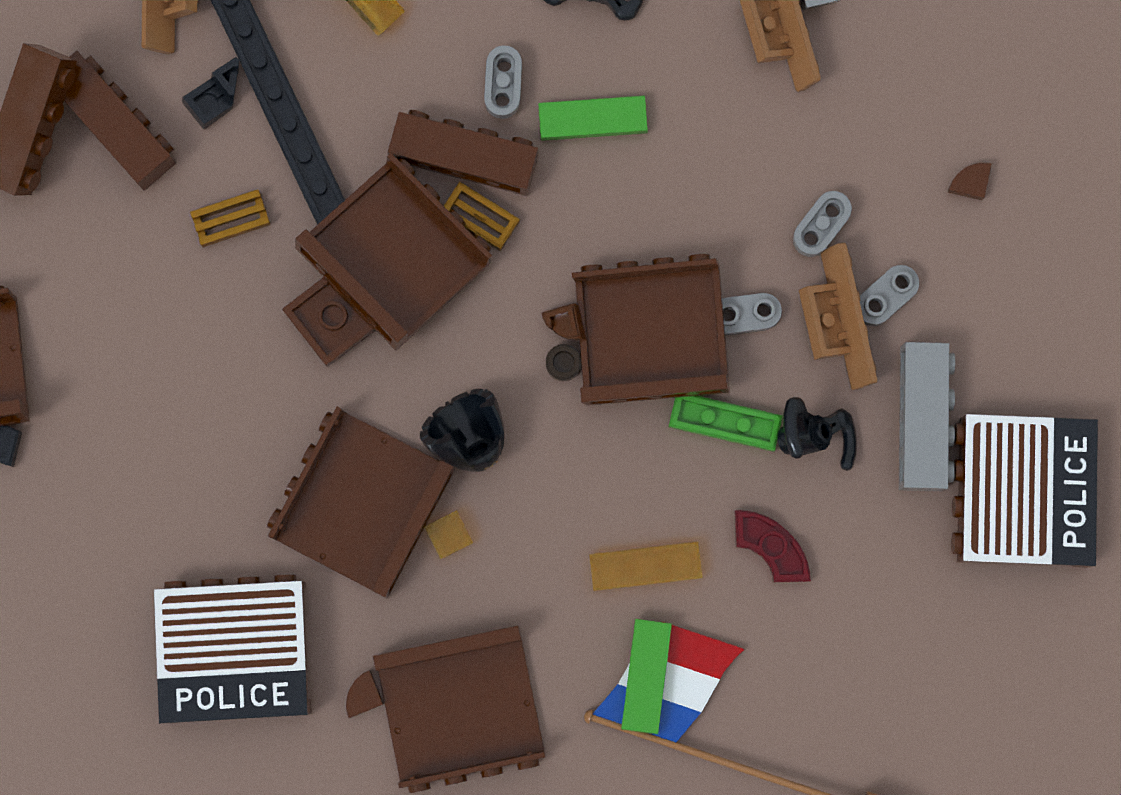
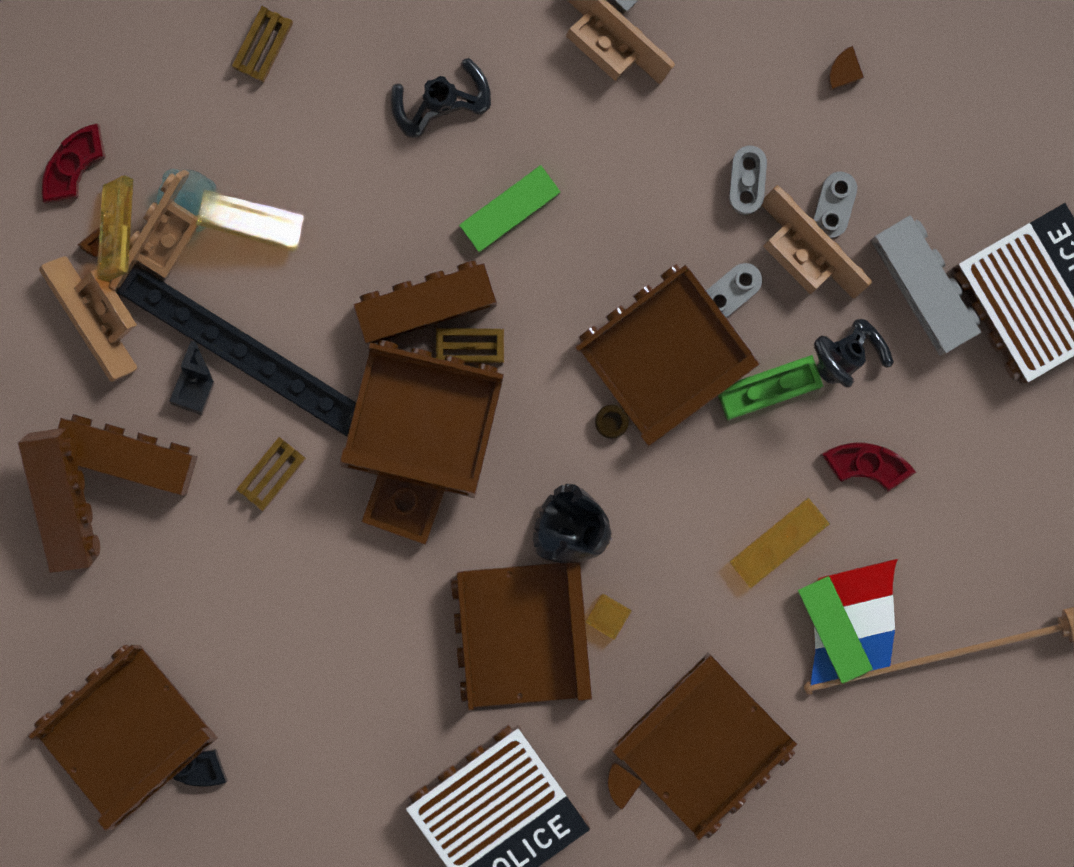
camera: 30 degrees left, 5 degrees up
(503, 83) = (419, 226): light grey plate -> none
(565, 321) = (593, 388): reddish brown tile -> none

